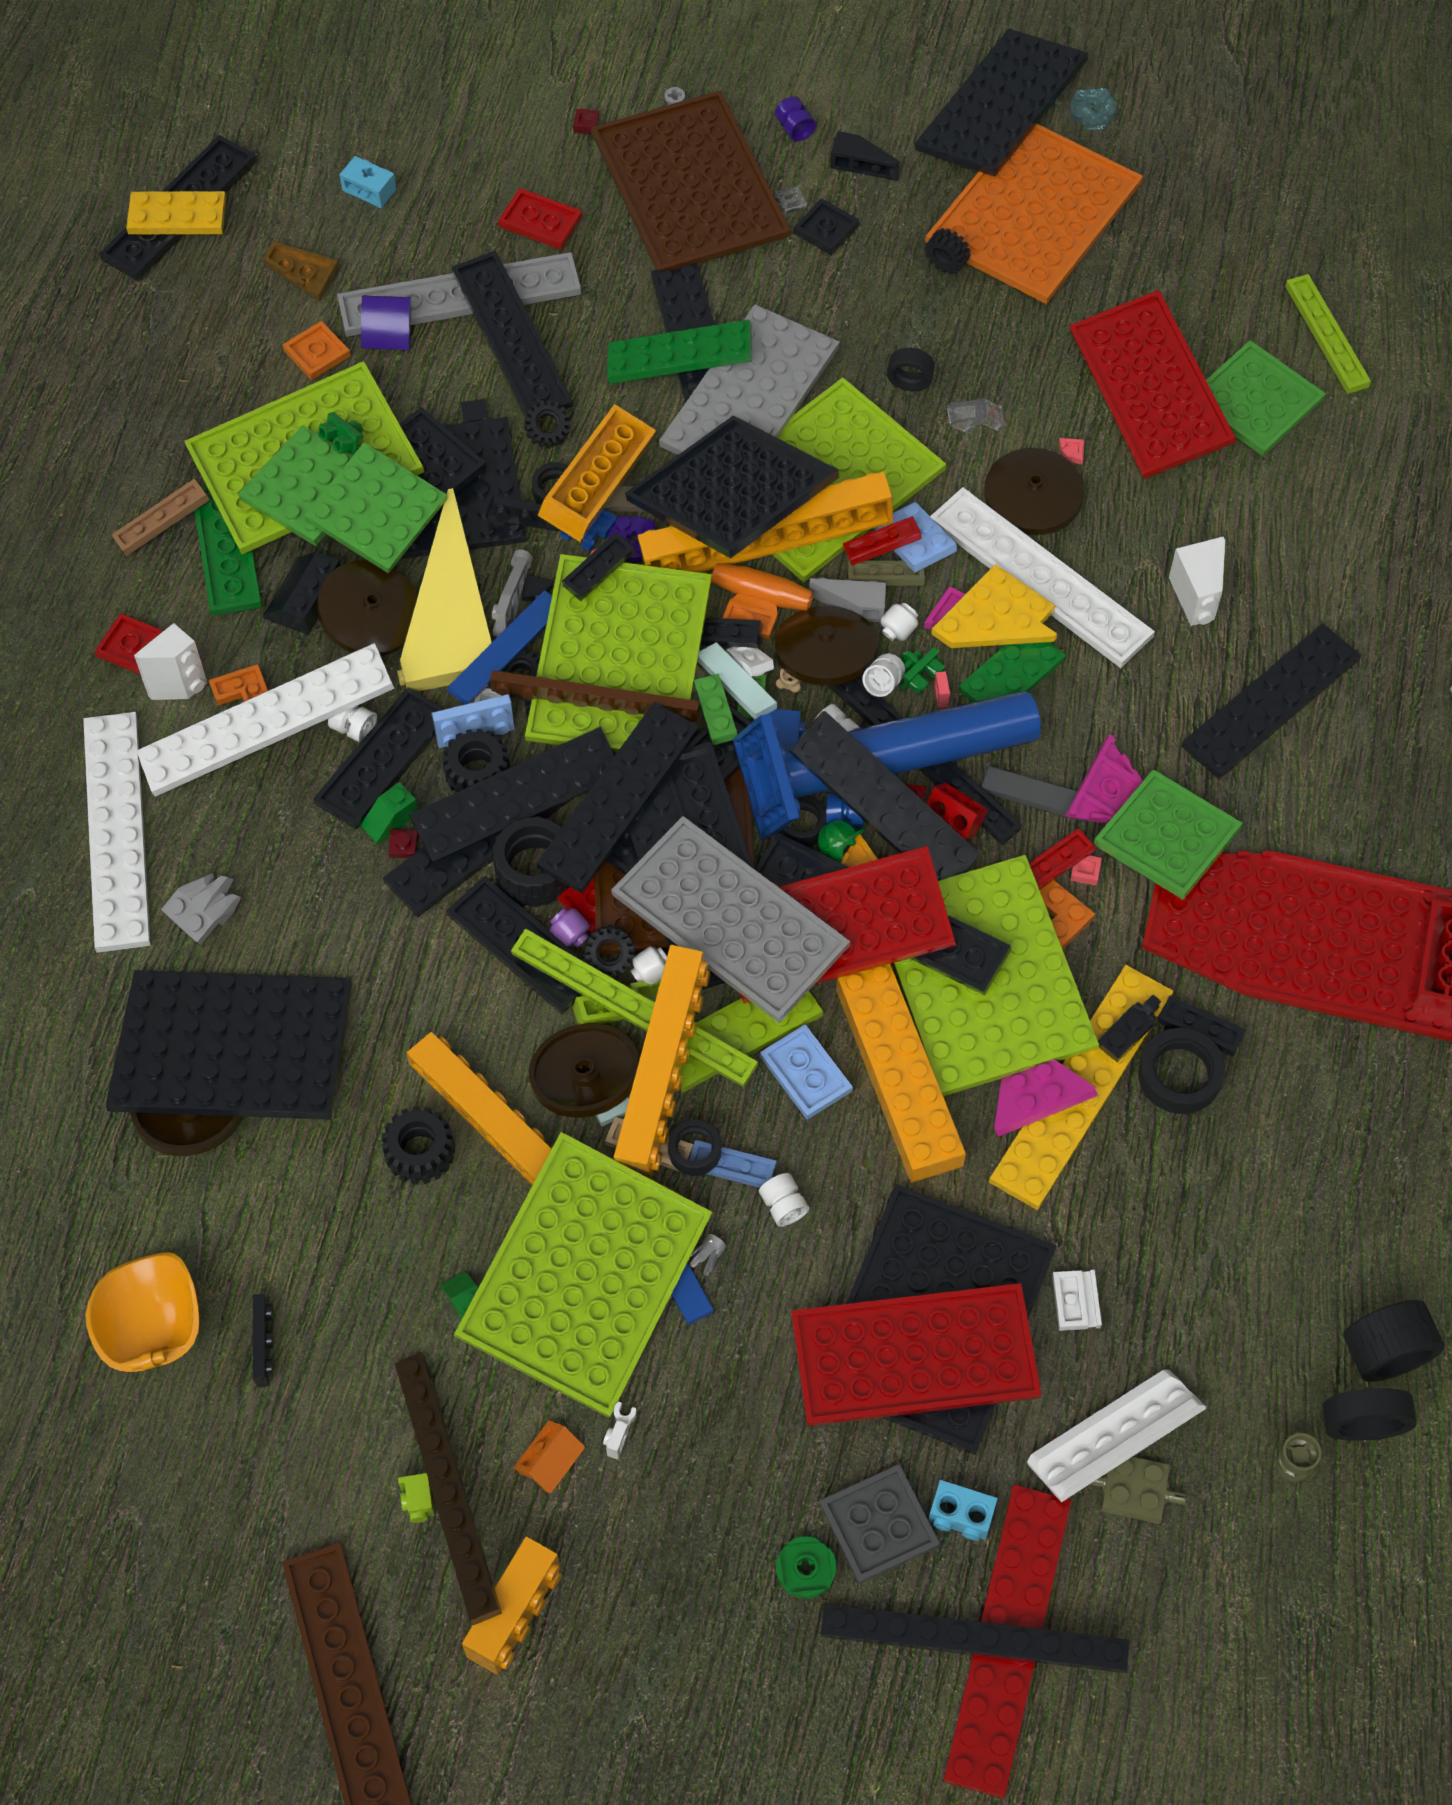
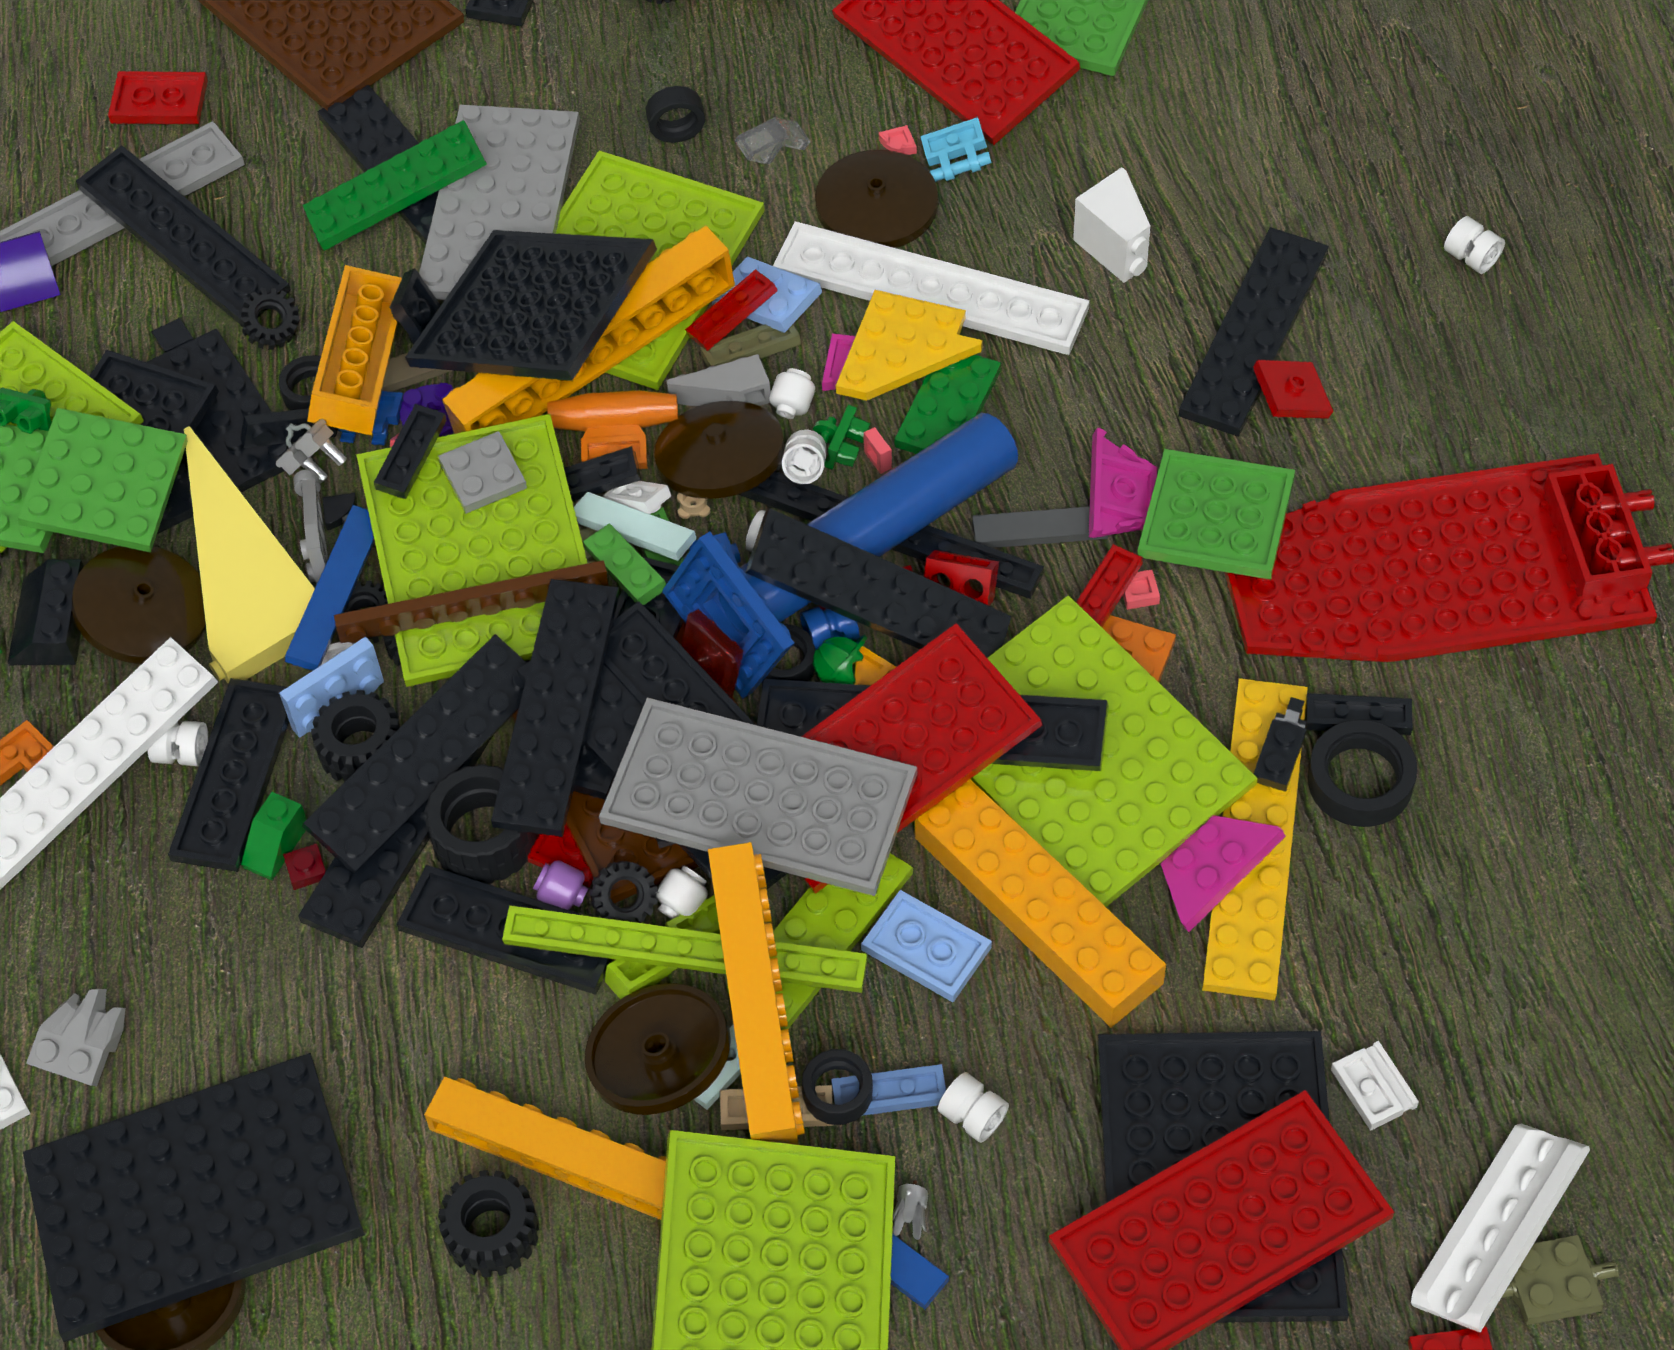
camera: 20 degrees left, 5 degrees down
(529, 533) = (301, 451): none -> light grey piece
(643, 601) = (482, 472): none -> light grey plate
(651, 452) = (413, 304): none -> black plate
(746, 800) = (712, 650): none -> clear red plate
(1111, 467) = (952, 143): none -> medium azure plate
(1275, 758) = (1292, 389): none -> red plate

